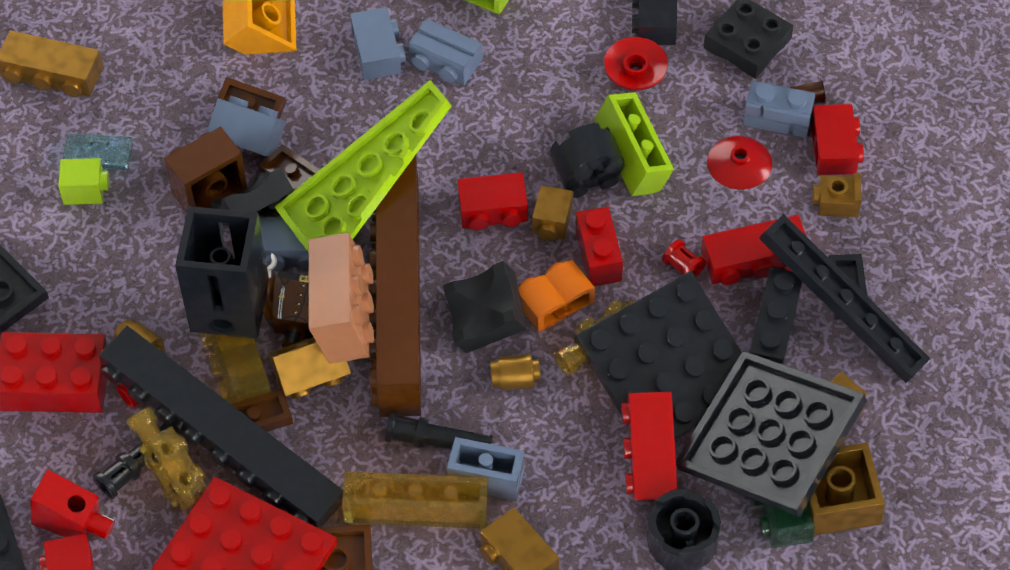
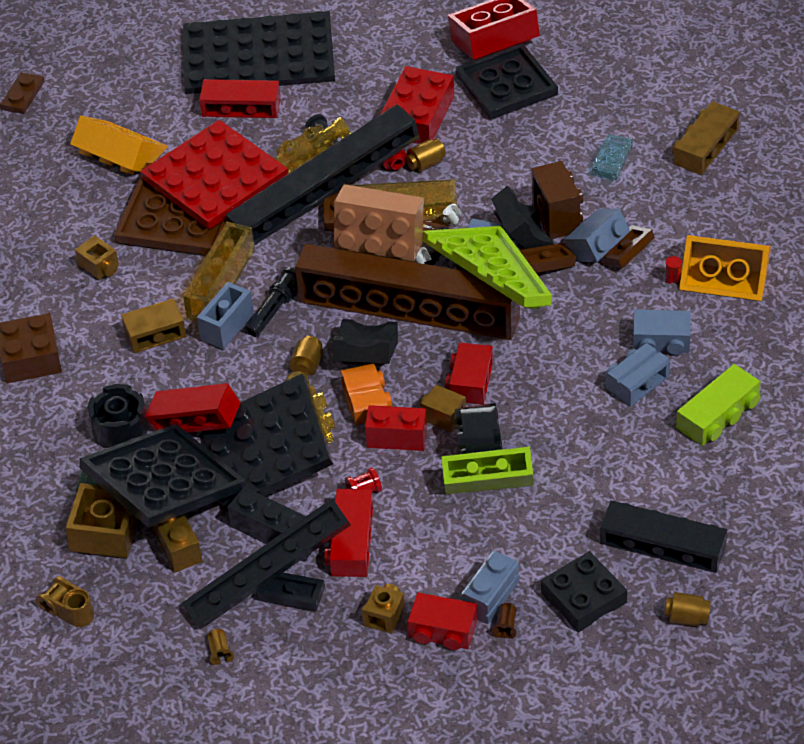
camera: 110 degrees right, 10 degrees down
(67, 508) = (300, 96): red torso -> none
(82, 181) = (580, 139): lime brick -> none
(220, 288) = (422, 153): black brick -> none
(279, 51) = (673, 269): none -> red piece
(635, 53) = (579, 490): red dish -> none
(736, 172) = (453, 565): red dish -> none
(945, 330) = (219, 643): none -> pearl gold piece
(954, 497) = (67, 603): none -> pearl gold piece

